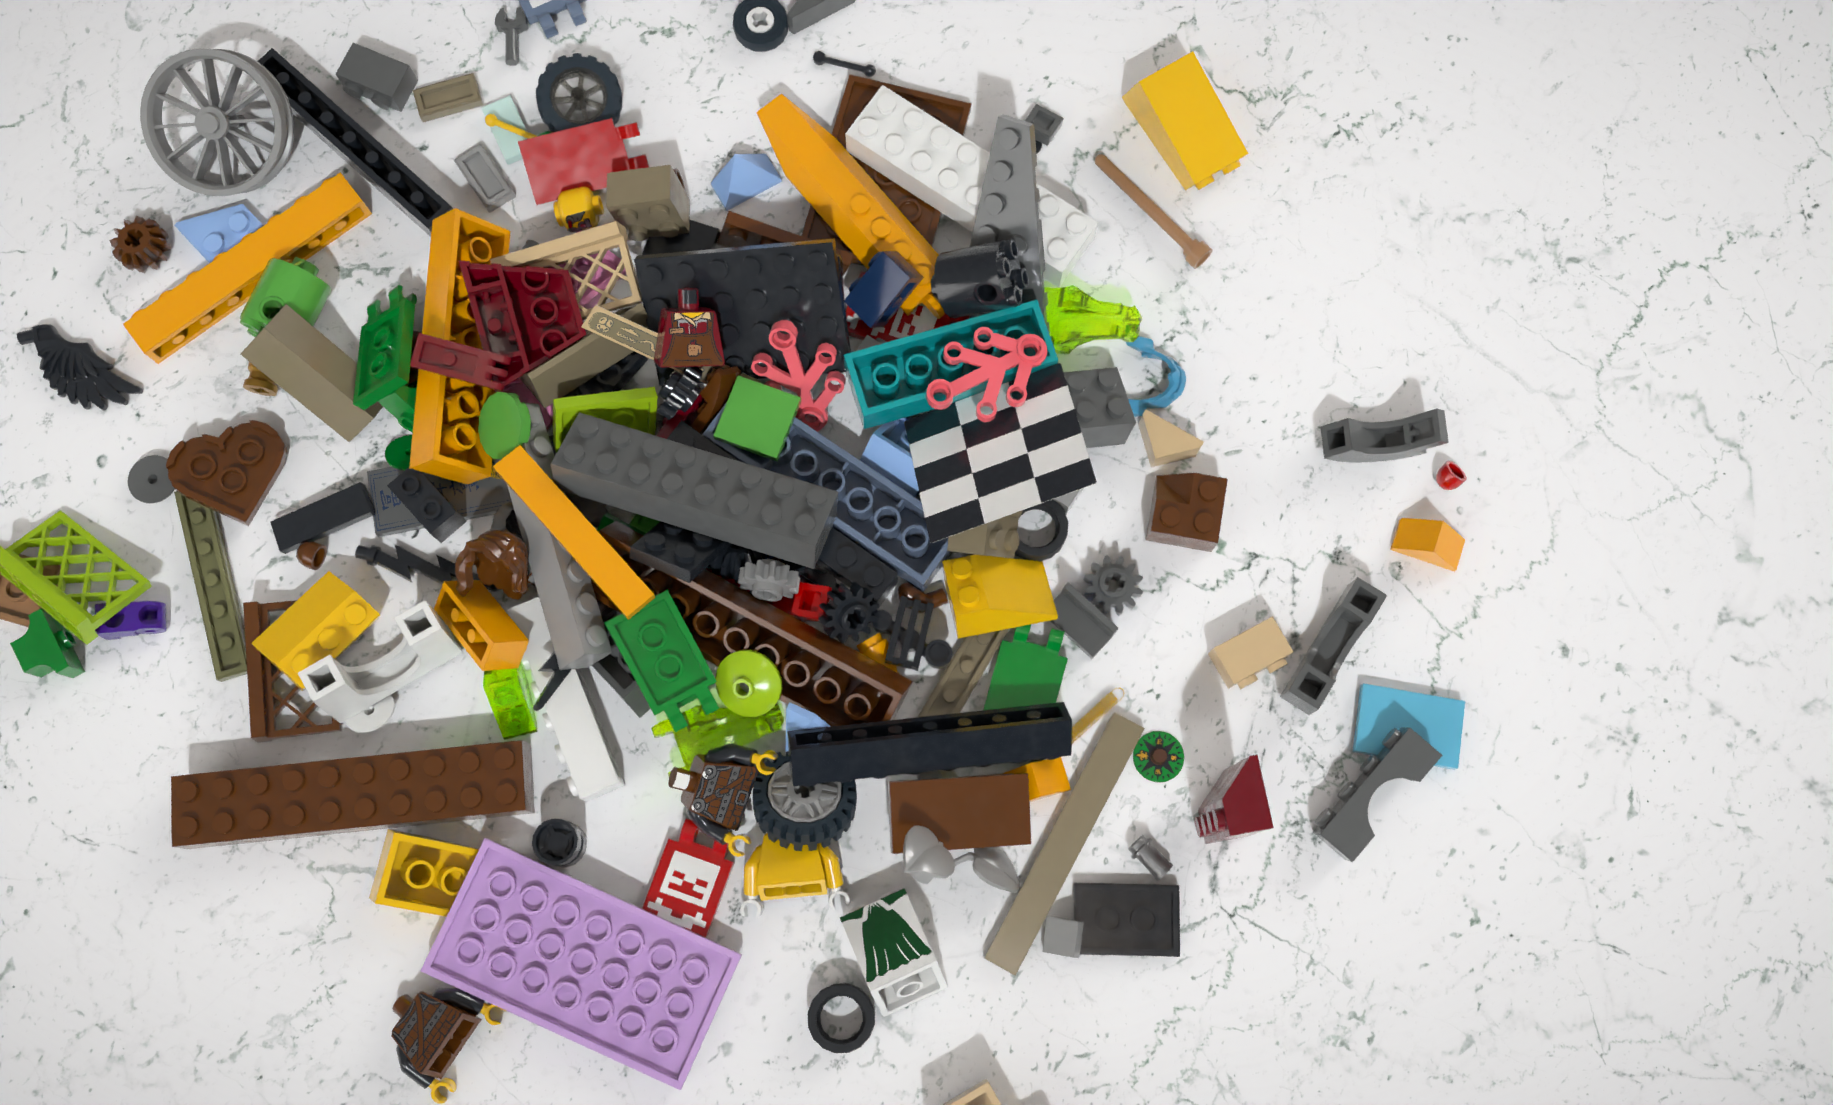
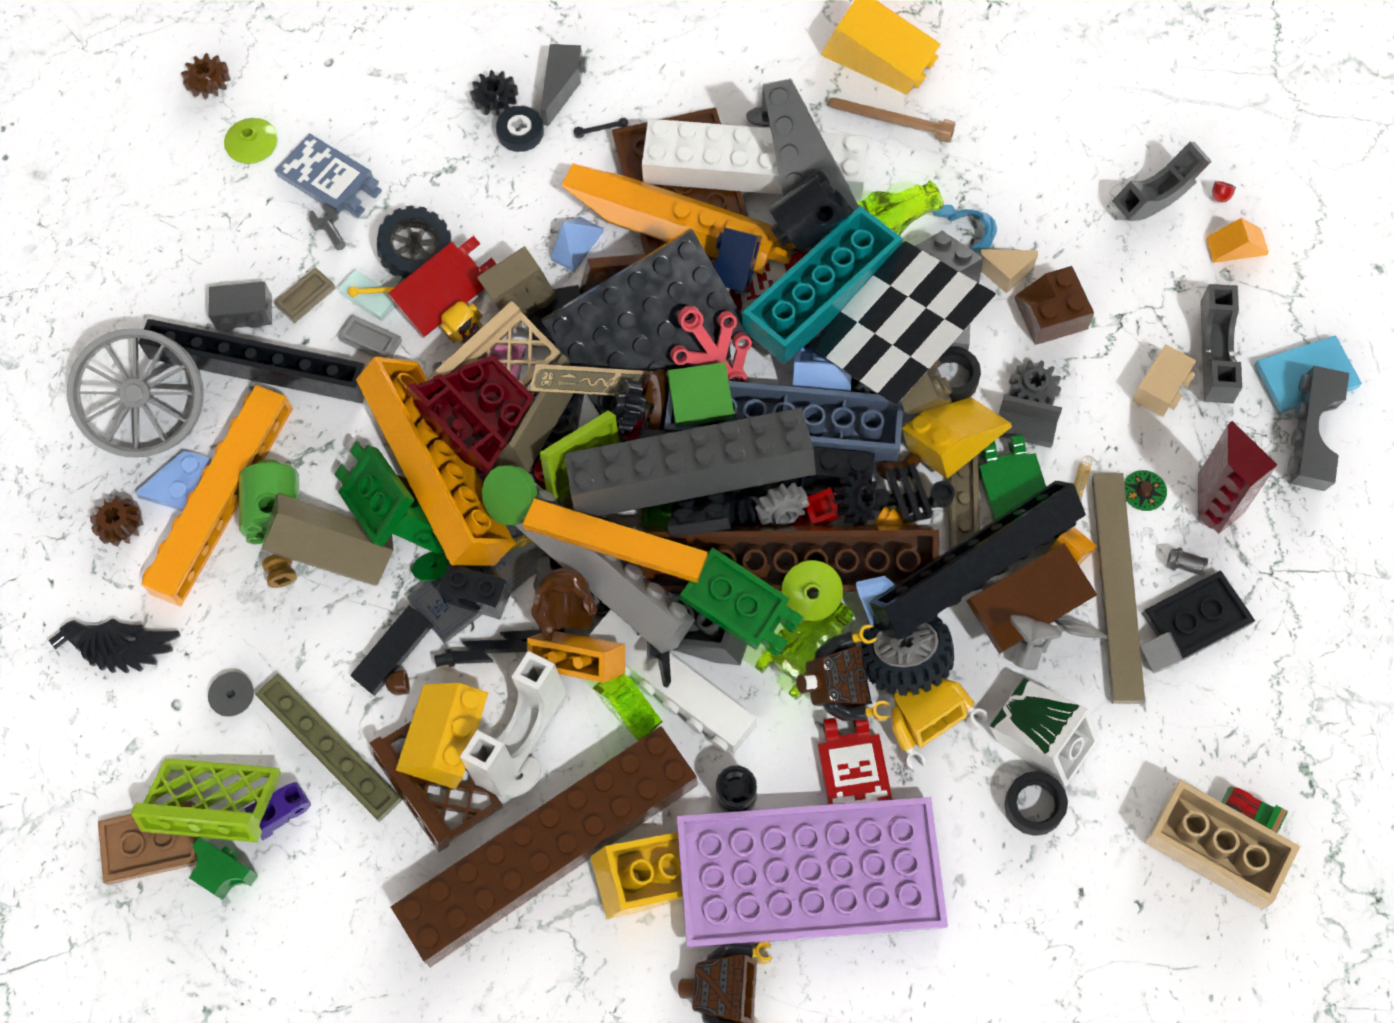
camera: 25 degrees left, 10 degrees down
(229, 470) = (294, 653): reddish brown plate -> none
(458, 361) = (451, 459): dark red hinge -> none
(688, 334) = (616, 354): torso -> none
(990, 369) = (859, 266): coral plant -> none

